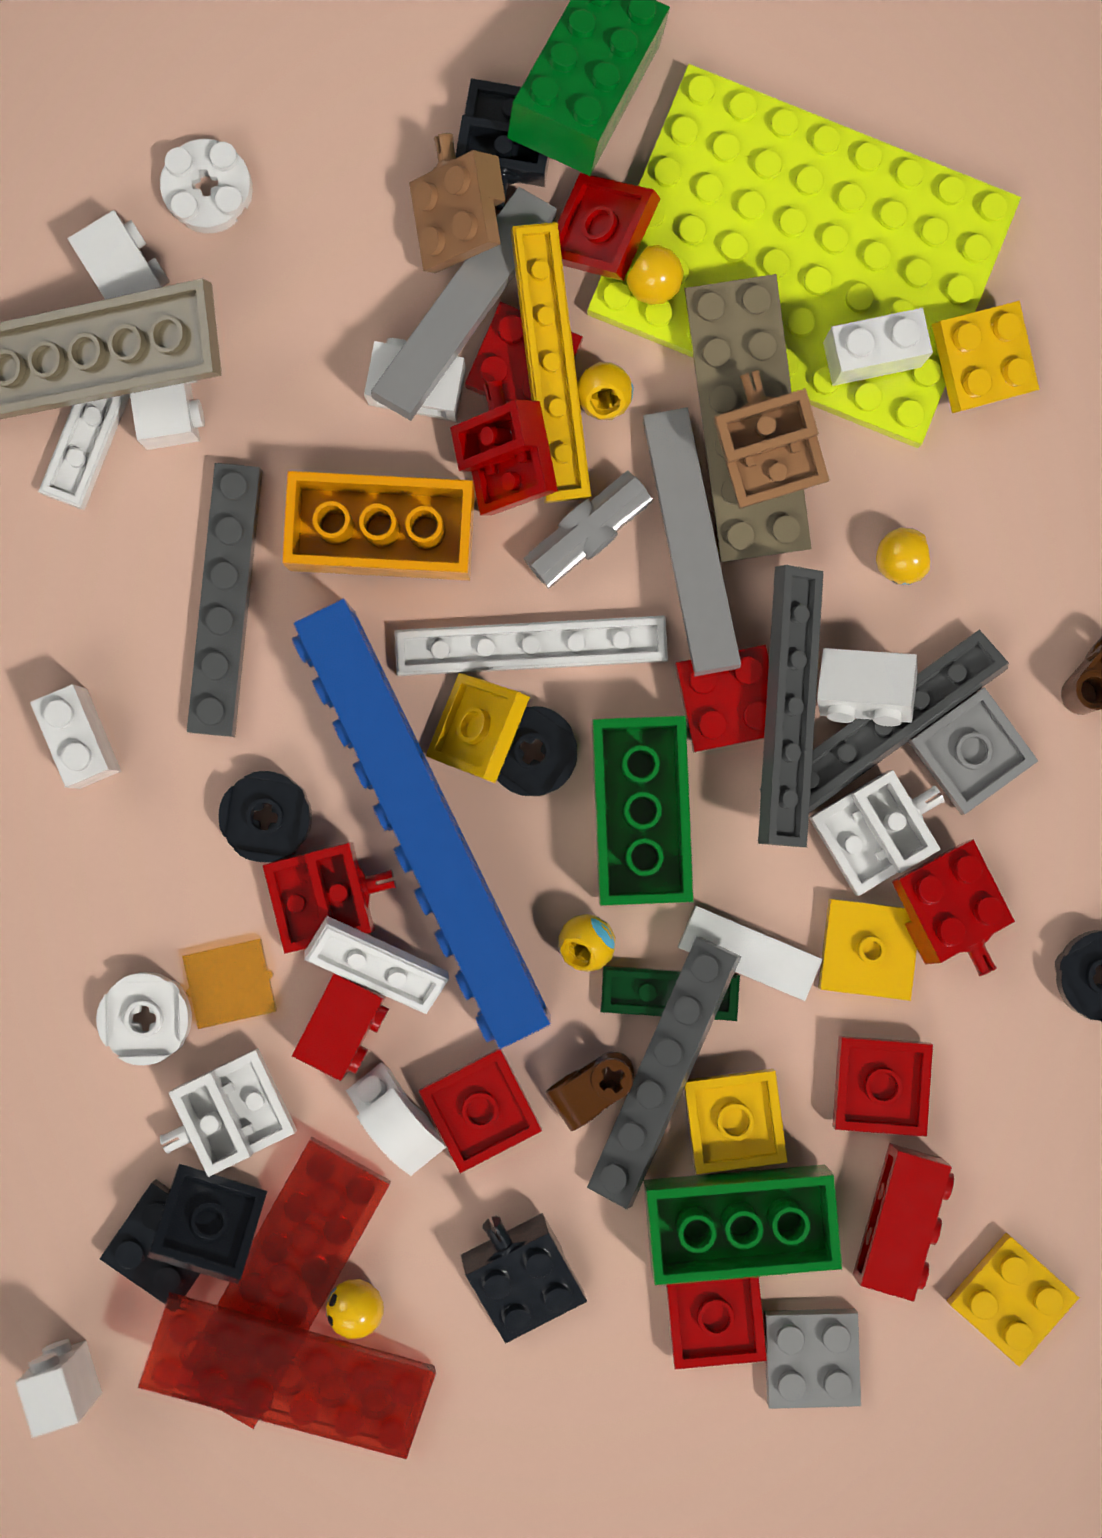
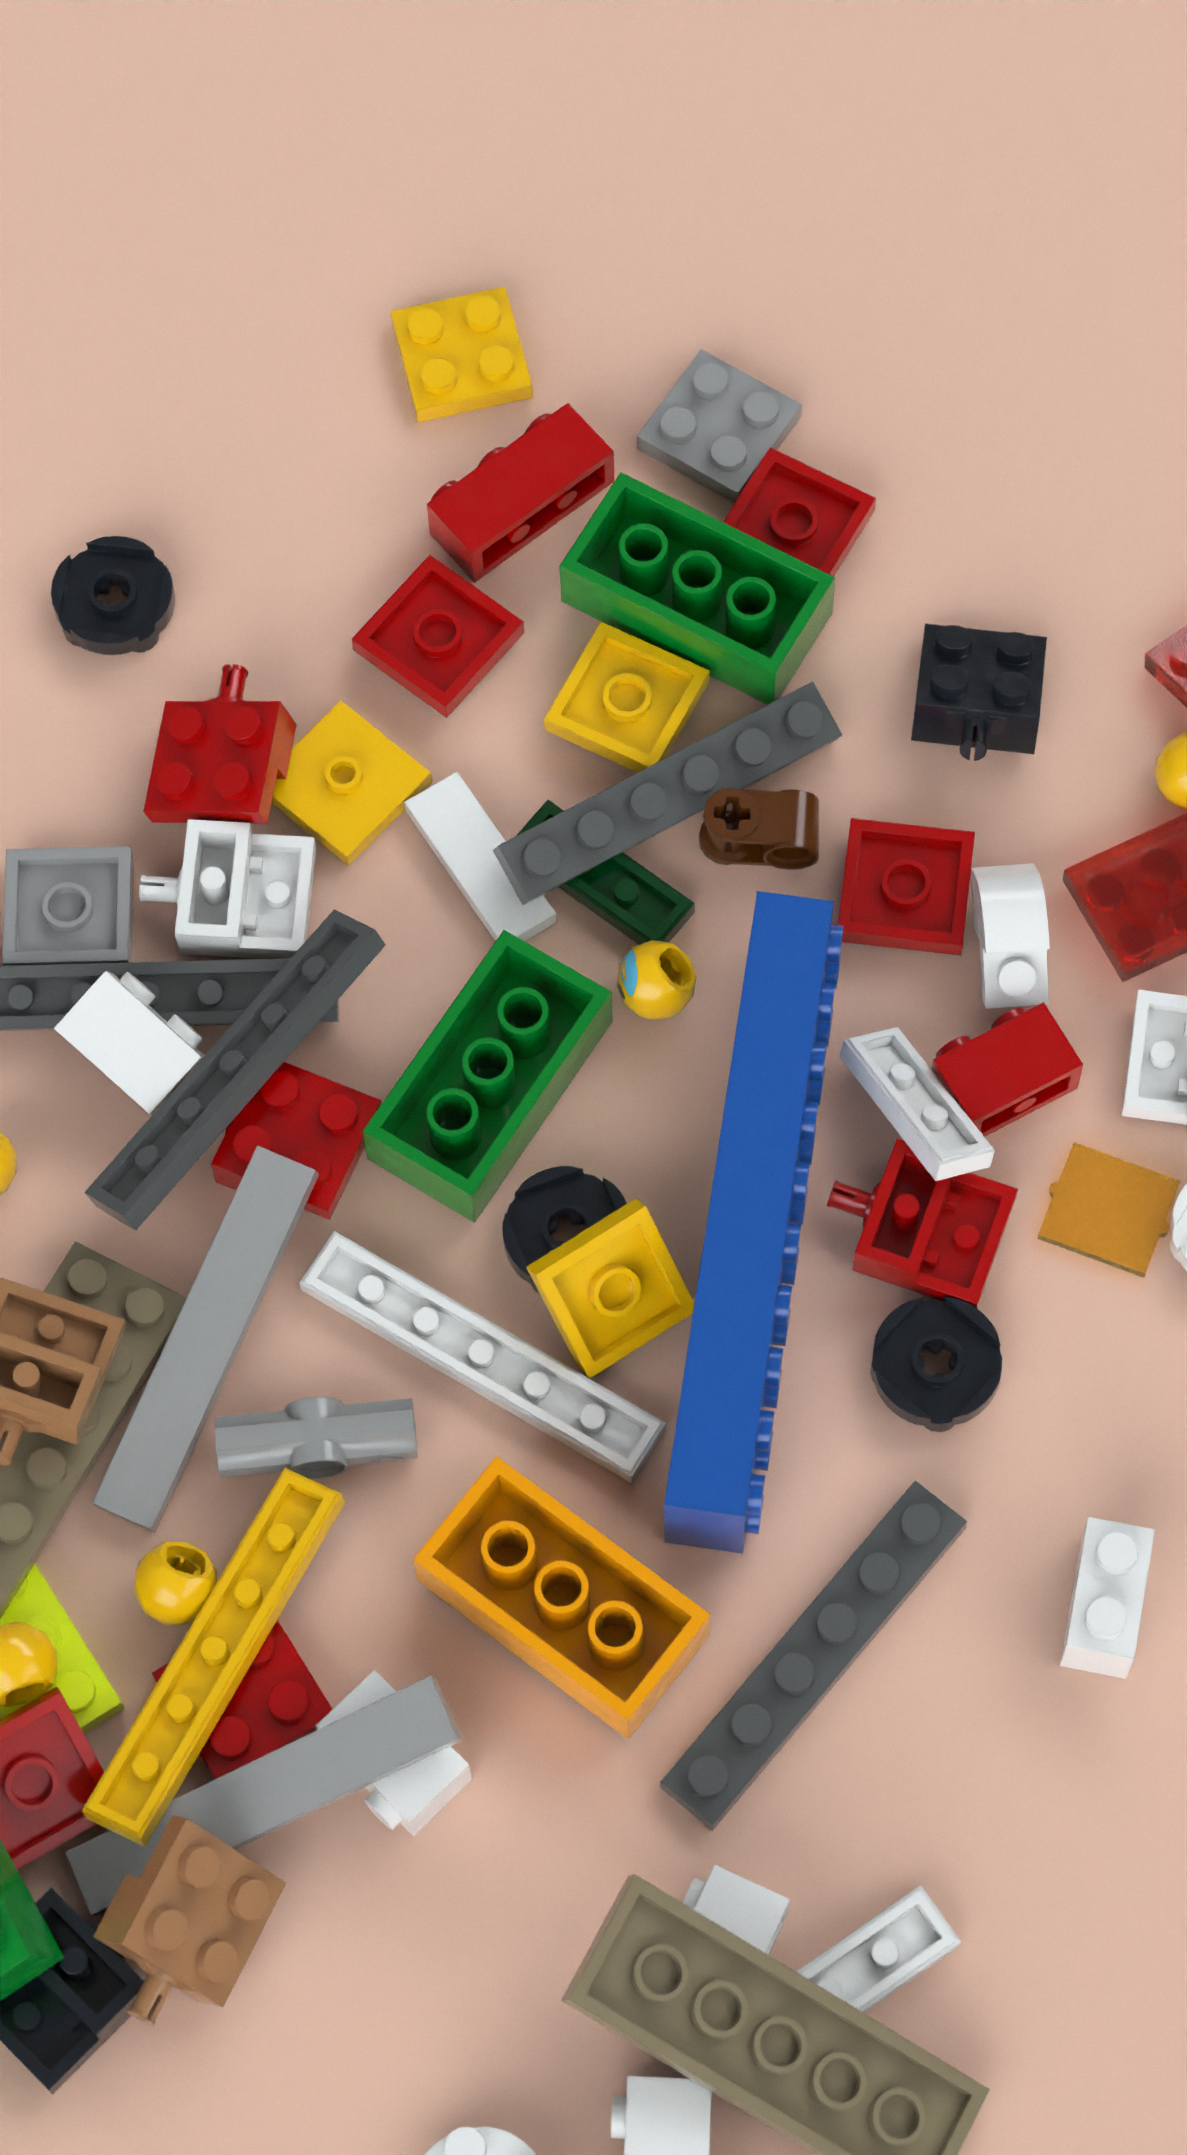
camera: 140 degrees left, 20 degrees down
(505, 452) = (347, 1581): red plate -> none

